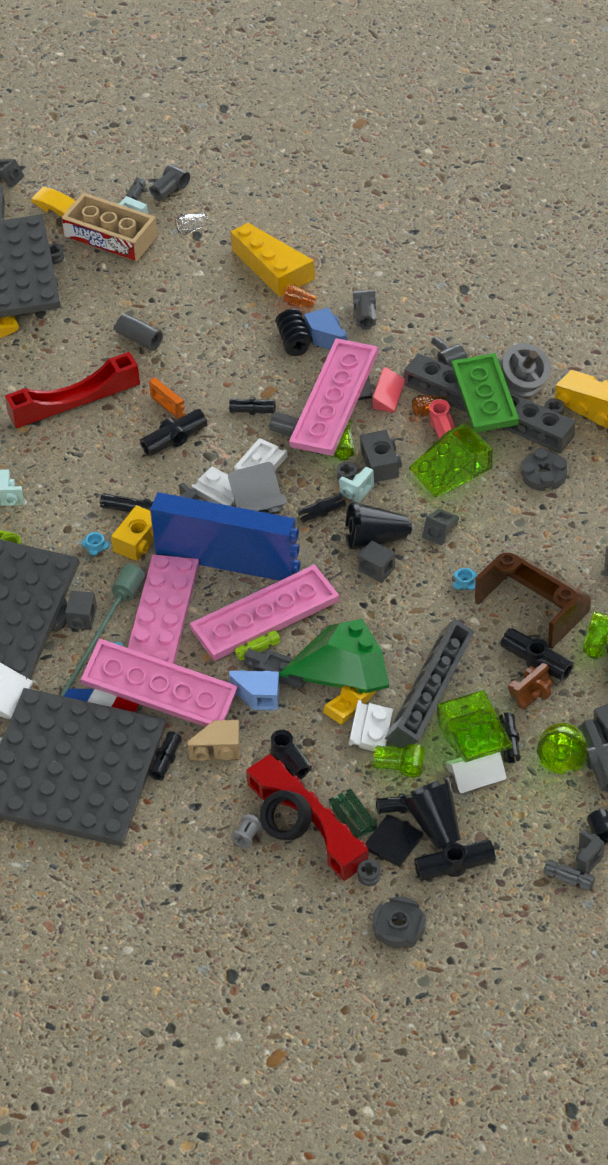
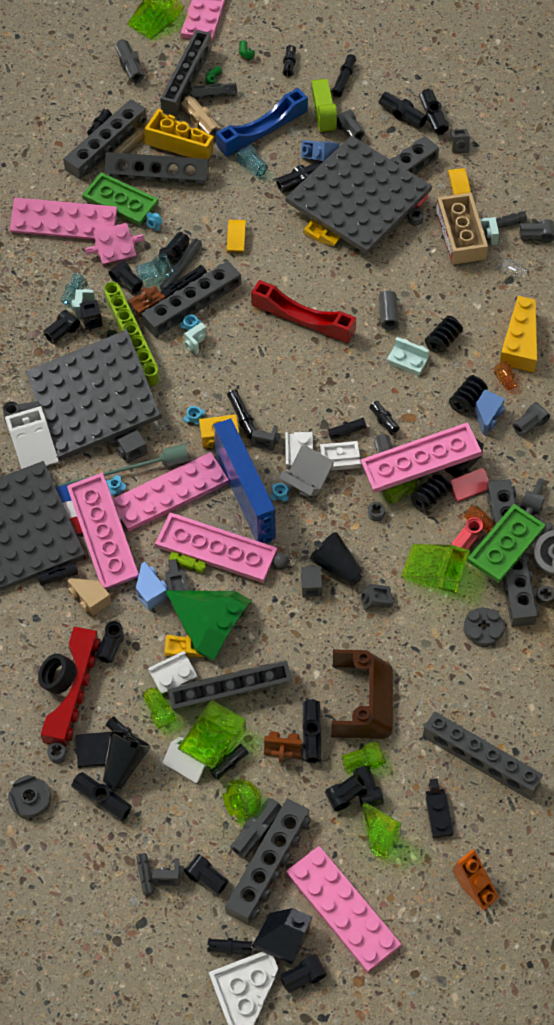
camera: 50 degrees right, 10 degrees up
(166, 398) = (346, 362): orange tile -> none
(173, 432) = (321, 390): black piece -> none
(204, 349) = (408, 356): none -> light aqua bracket
(210, 309) = (443, 334): none -> black piece
(235, 439) = (347, 428): none -> black pin
(246, 831) = (32, 660): light grey bush -> none
(321, 507) = (331, 518): black pin -> none
(330, 571) = (281, 560): none -> dark grey hinge
(343, 799) = (102, 696): clear green tile -> none
(359, 487) = (368, 527): light aqua bracket -> none
(370, 414) = (431, 492): none -> black piece
(380, 456) = (407, 510): dark grey brick -> none
(464, 579) = (344, 638): medium azure plate -> none

